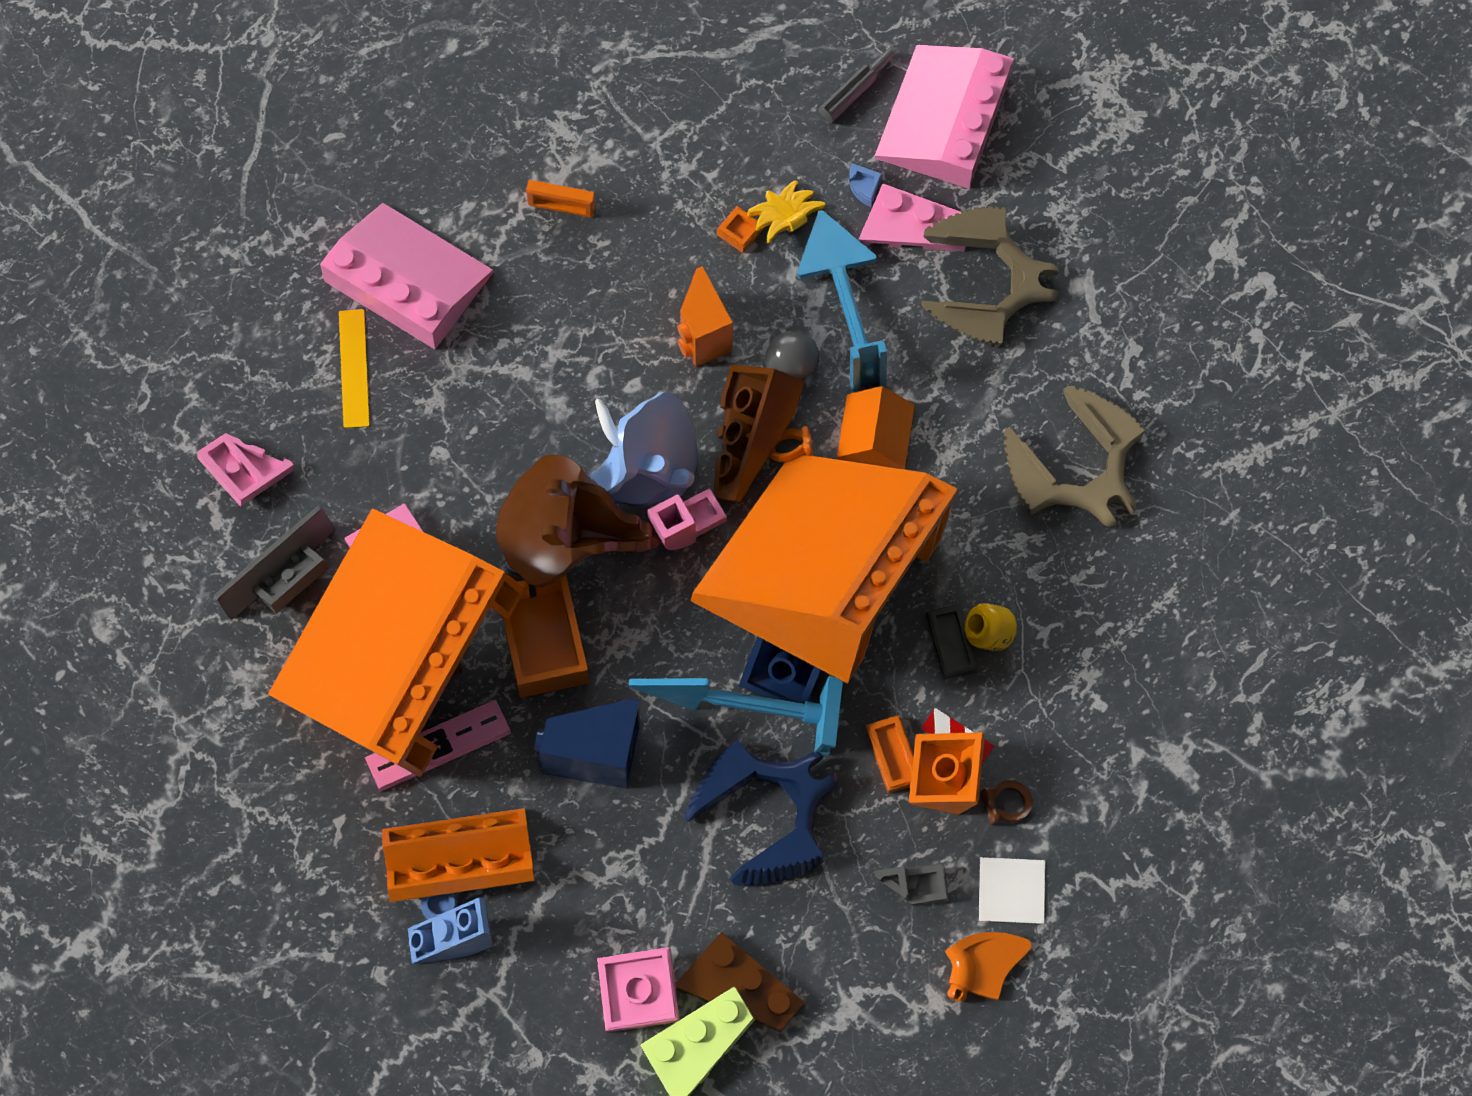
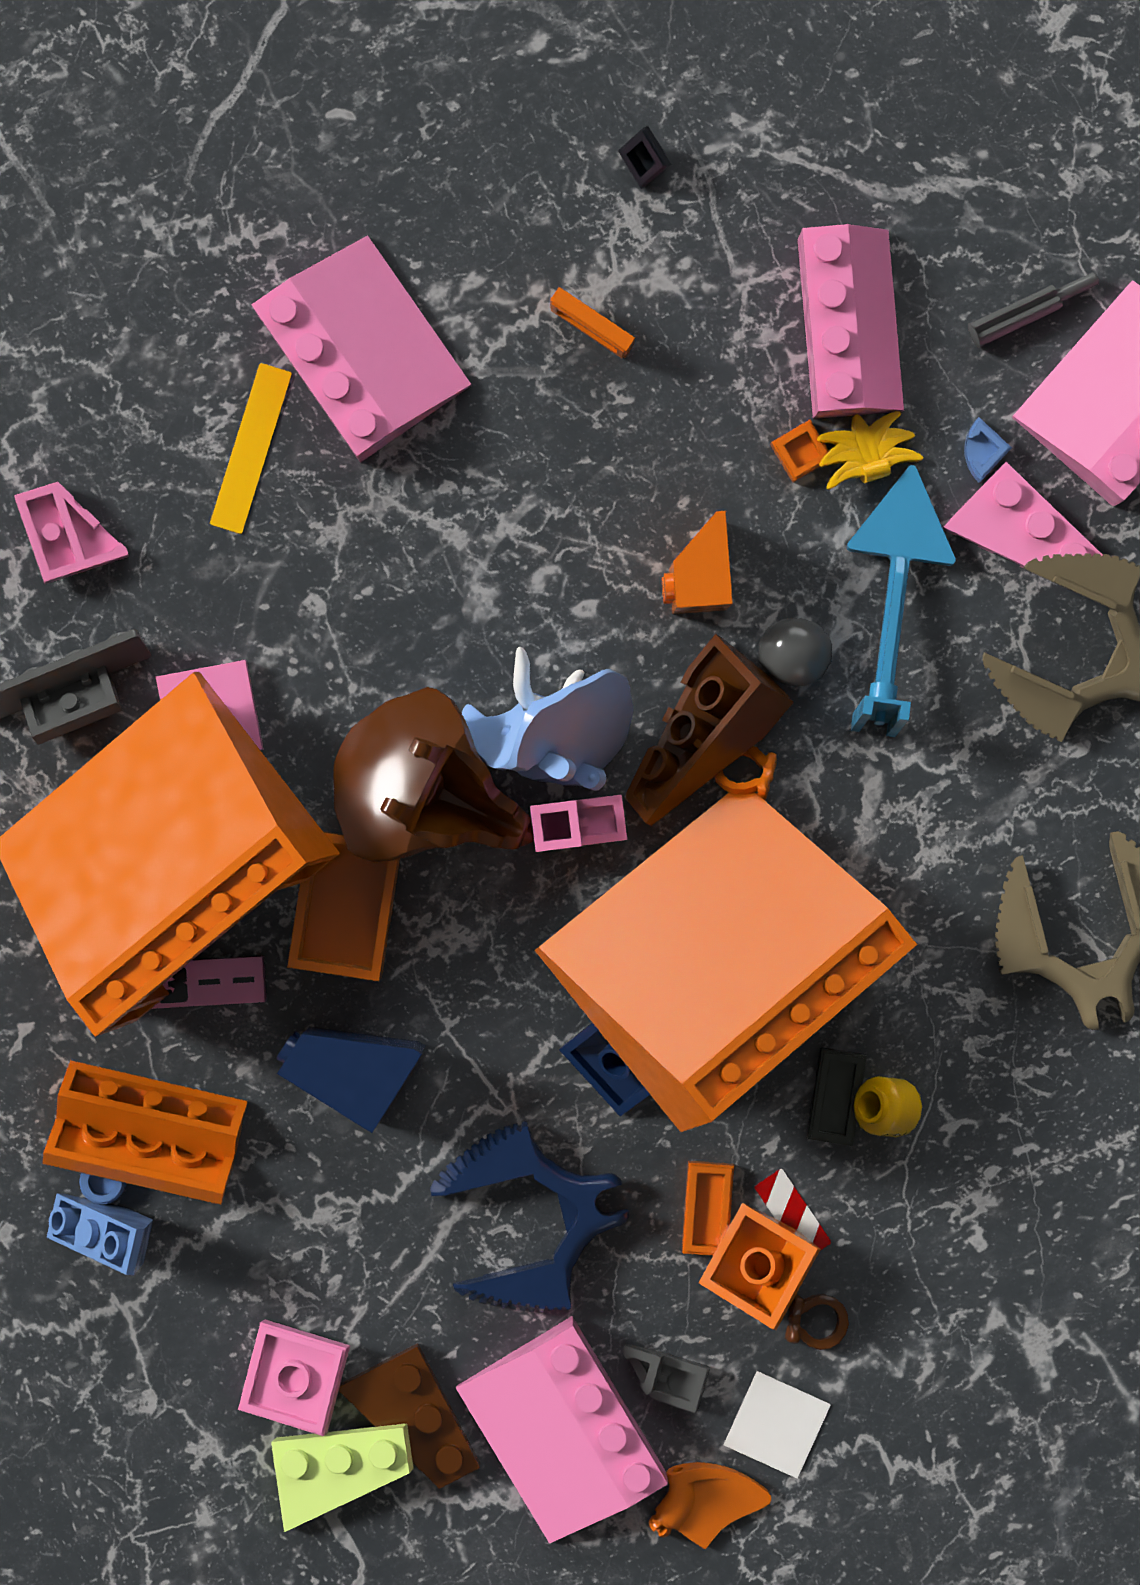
camera: 25 degrees right, 20 degrees up
(553, 85) = (644, 157): none -> black slope
(691, 691) = (643, 1134): dark azure piece -> none
(736, 135) = (850, 321): none -> bright pink slope
(855, 951) = (563, 1432): none -> bright pink slope
(876, 428) = (858, 789): orange slope -> none

